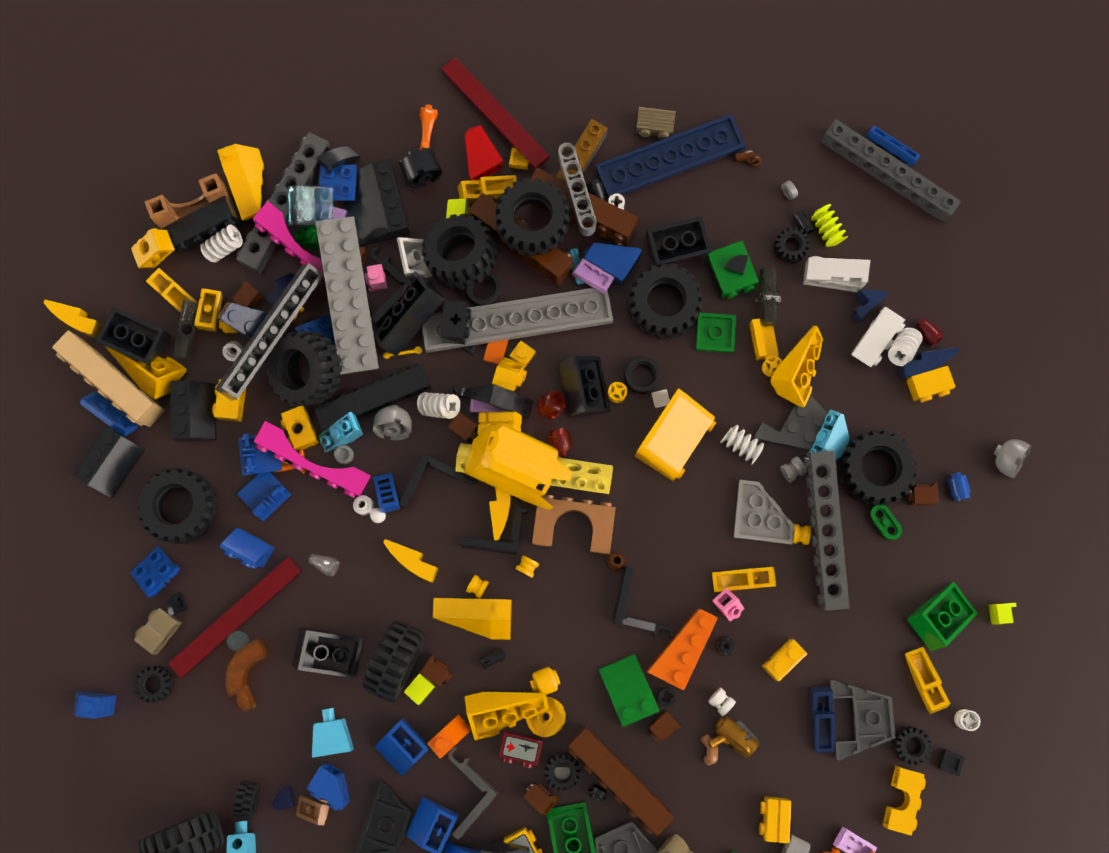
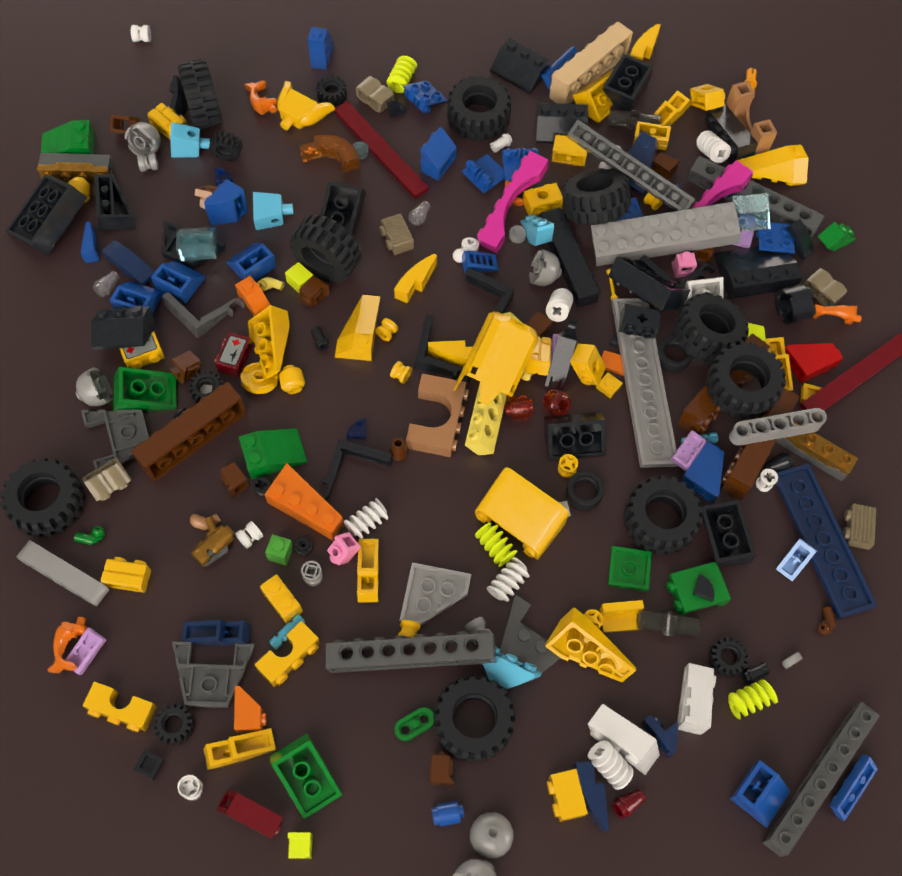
camera: 90 degrees right, 15 degrees down
(124, 201) = (751, 78): none -> light orange pin
(125, 603) = (401, 73): none -> neon yellow piece
(177, 770) = (261, 104): none -> orange animal
(184, 721) = (299, 109): none -> yellow torso
(221, 478) = (500, 143): none -> white pin
(330, 121) = (837, 236): none -> green slope
(354, 587) = (397, 234): none -> dark tan brick
(386, 812) = (196, 243): none -> clear light blue slope
(395, 137) = (825, 288): none -> dark tan brick
(425, 722) = (268, 283): none -> light yellow arm
(594, 605) = (357, 430): none -> clear blue tile
(694, 182) = (796, 559): none -> light blue slope
(695, 585) = (366, 518): none -> white piece
(707, 456) = (495, 544): none -> neon yellow piece
(735, 668) = (279, 550): none -> bright green brick
(751, 633) = (313, 577): none -> light grey wheel
(813, 651) = (276, 641): none -> medium azure axle
(850, 657) = (276, 668): none -> yellow arch
(894, 676) = (247, 713): none -> orange slope
(908, 223) = (761, 793): none -> blue slope
(970, 448) = (491, 835): none -> light grey cylinder
(983, 663) = (250, 813): none -> dark red slope

